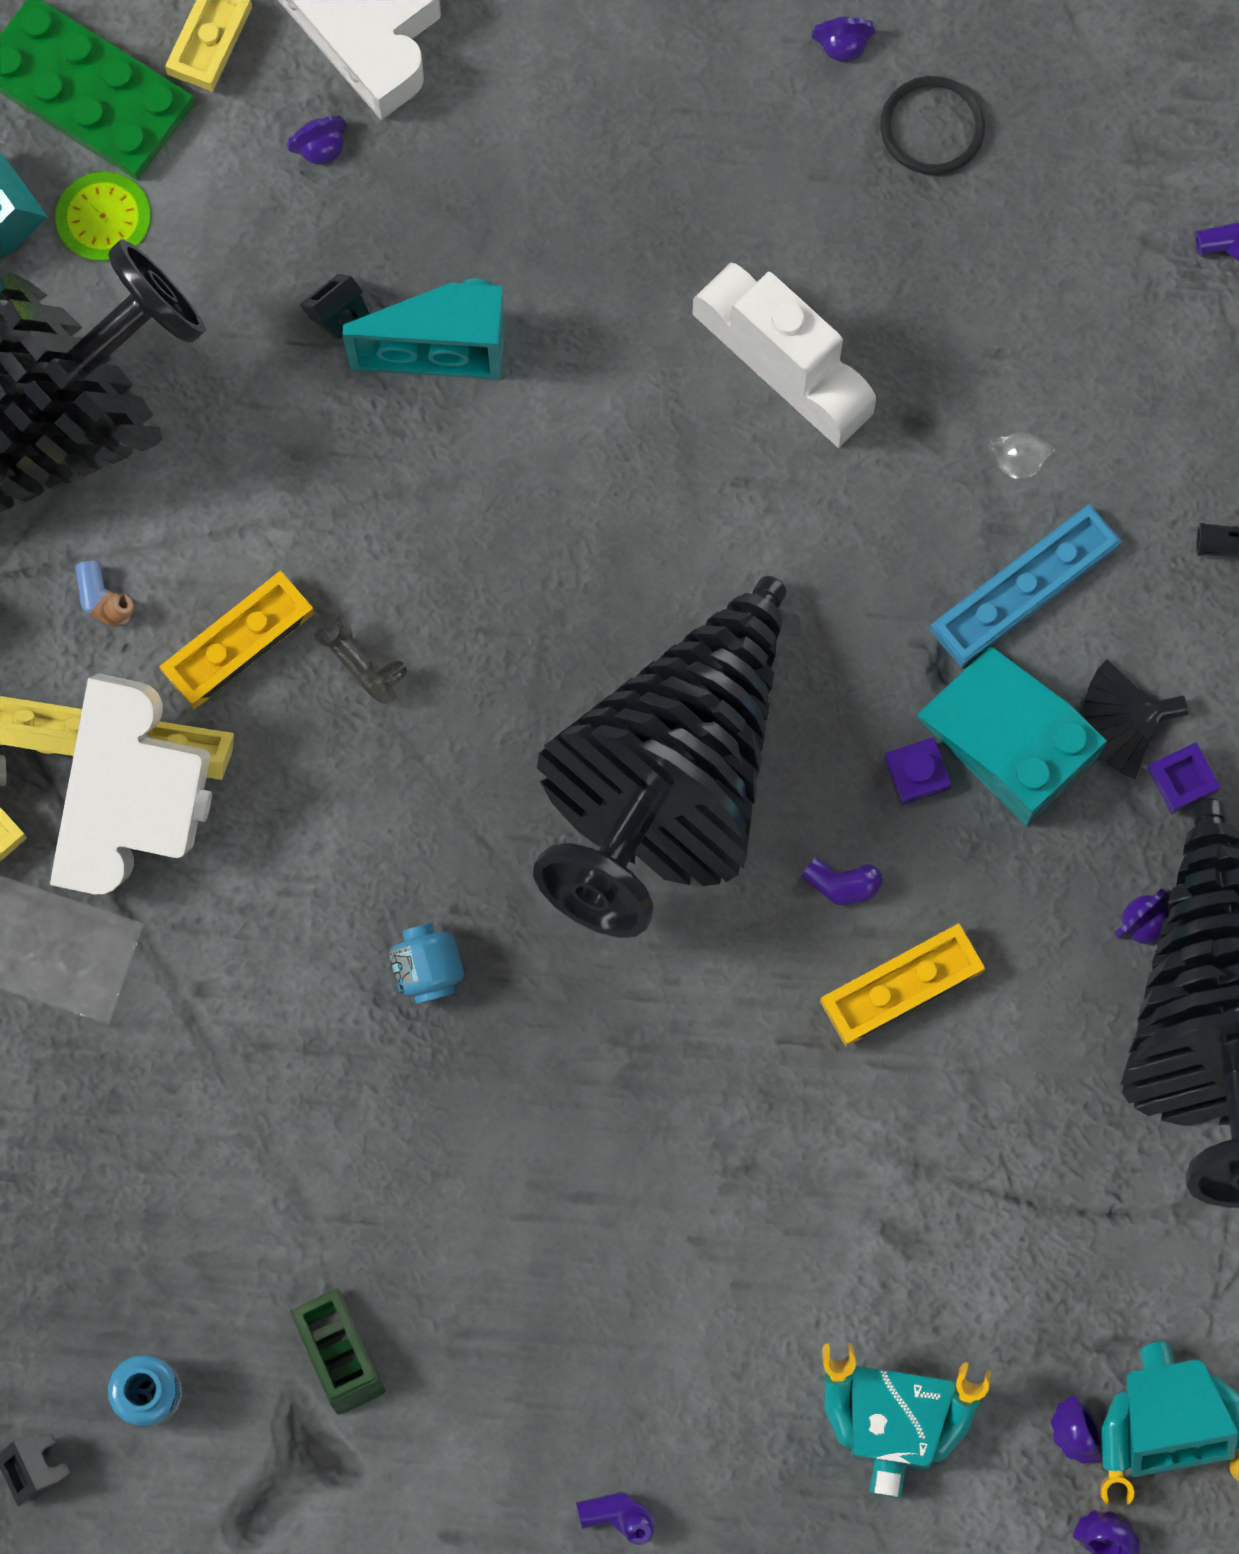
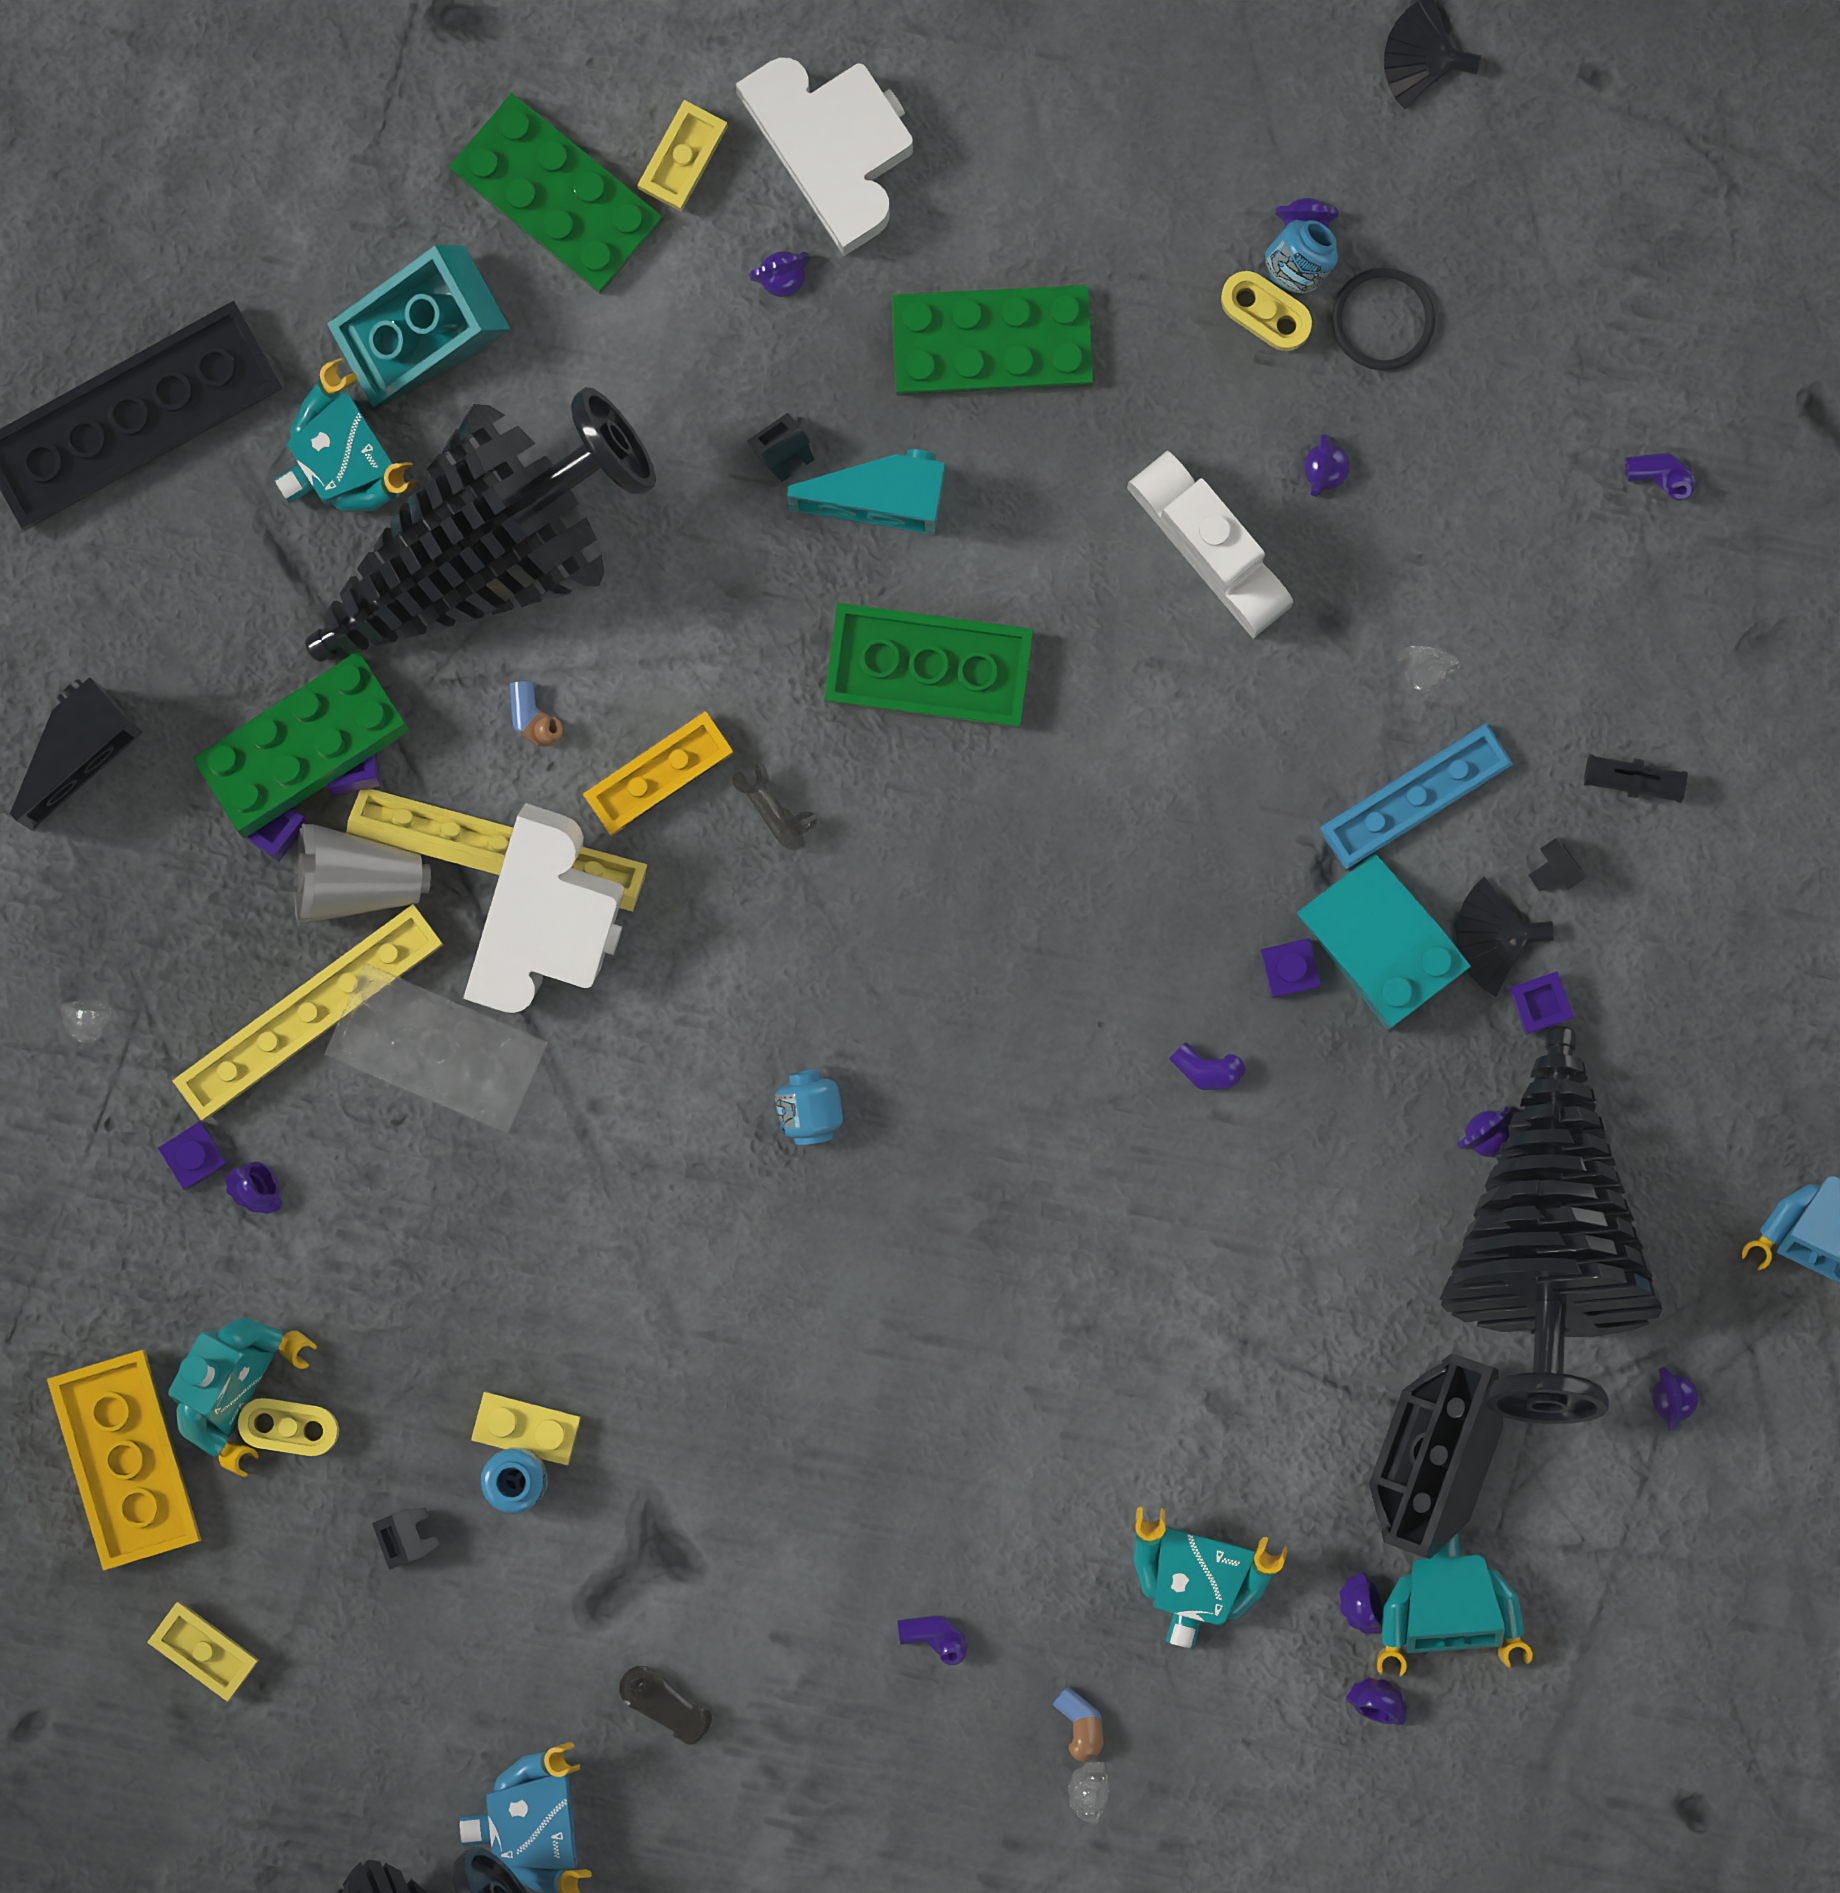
camera: 10 degrees right, 10 degrees up
(100, 212) = (563, 327): clear neon green sticker -> none
(164, 1334) = (519, 1424): none -> light yellow plate
(356, 1391) = (706, 1499): dark green slope -> none
(507, 504) = (928, 665): none -> green plate
(539, 183) = (992, 340): none -> green plate
(664, 770) = (1055, 947): black plant -> none
(817, 123) = (1268, 309): none -> light yellow plate
(843, 67) = (1301, 256): none -> dark azure head
(892, 271) = (1325, 466): none -> dark purple piece
(902, 985) = (1251, 1173): yellow plate -> none
(1137, 1257) = (1436, 1456): none -> black wedge
(1182, 638) = (1559, 865): none -> black tile

